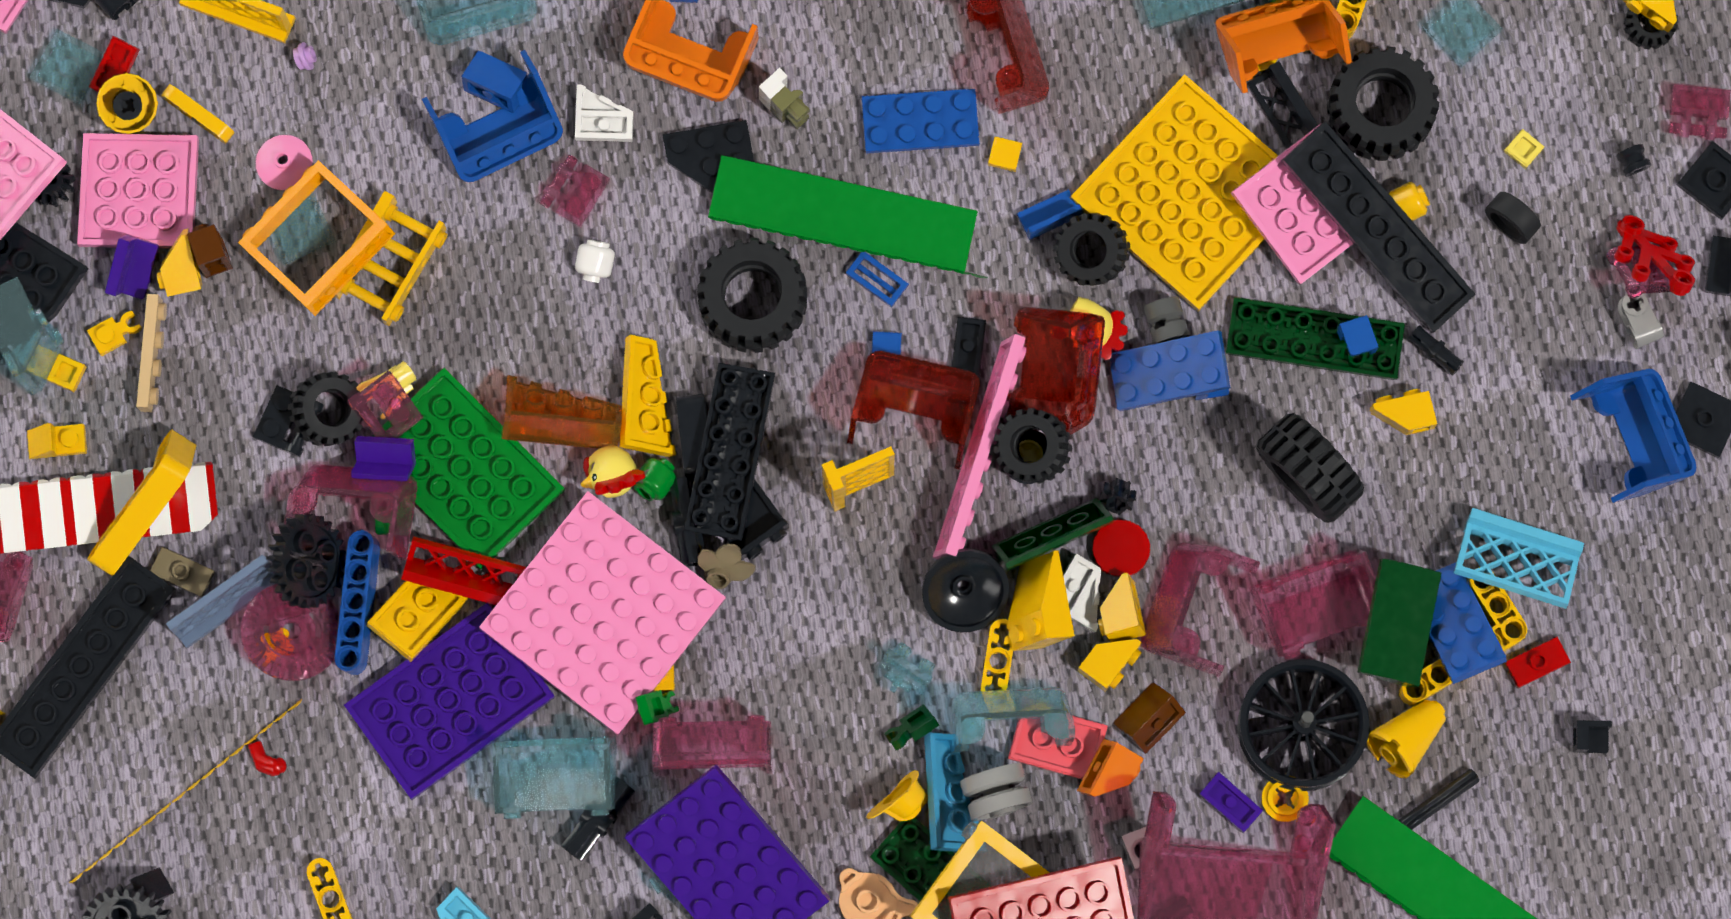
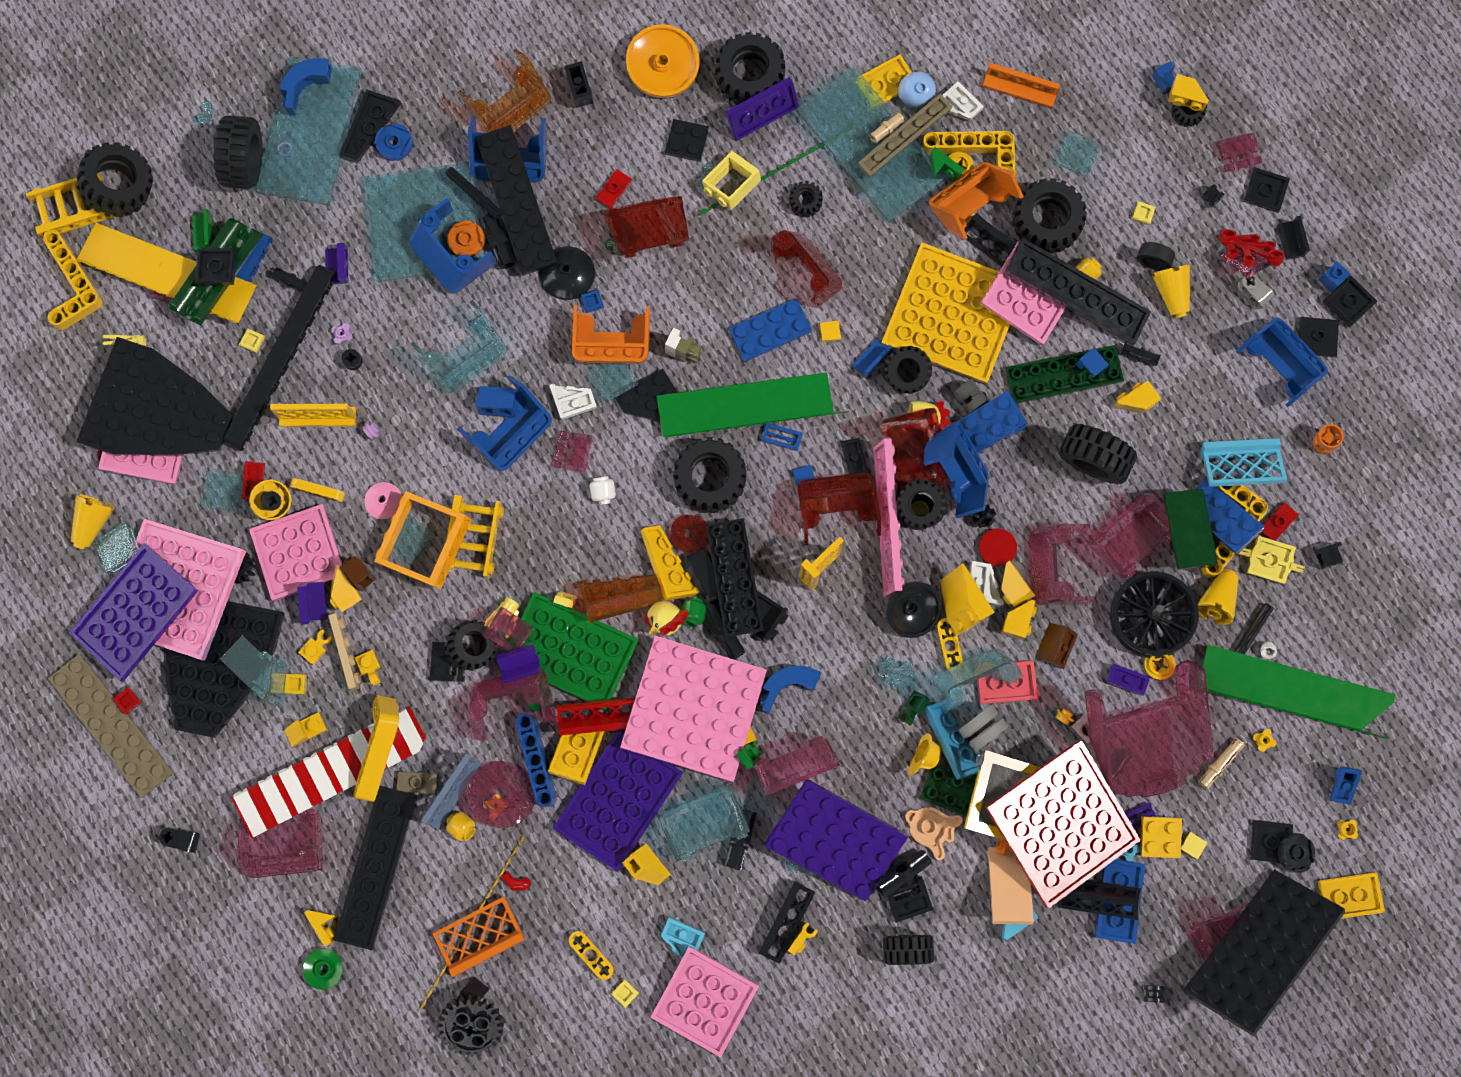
camera: 20 degrees left, 0 degrees up
(177, 383) = (368, 665): none -> yellow plate
(189, 840) = (487, 952): none -> orange fence
(218, 654) = (460, 826): none -> yellow head
(298, 578) = (494, 760): black gear -> none
(452, 805) = (646, 866): none -> yellow slope
(483, 394) = (565, 599): none -> light yellow tile
(668, 110) = (612, 379): none -> clear light blue tile
(677, 359) = (678, 533): none -> clear red plate
(724, 566) = (758, 650): dark tan plate -> none
(749, 618) = (793, 675): none -> blue arch
(1052, 534) = (954, 554): dark green slope -> none
(1110, 769) = (1047, 687): orange slope -> none
(1113, 412) = (962, 466): none -> blue windscreen
(1120, 820) = (1065, 716): none -> yellow plate
(1444, 839) = (1266, 652): none -> white hinge
(1503, 711) = (1271, 560): none -> light yellow plate
(1521, 275) = (1175, 289): none -> yellow cone
(1655, 570) = (1328, 439): none -> orange wheel

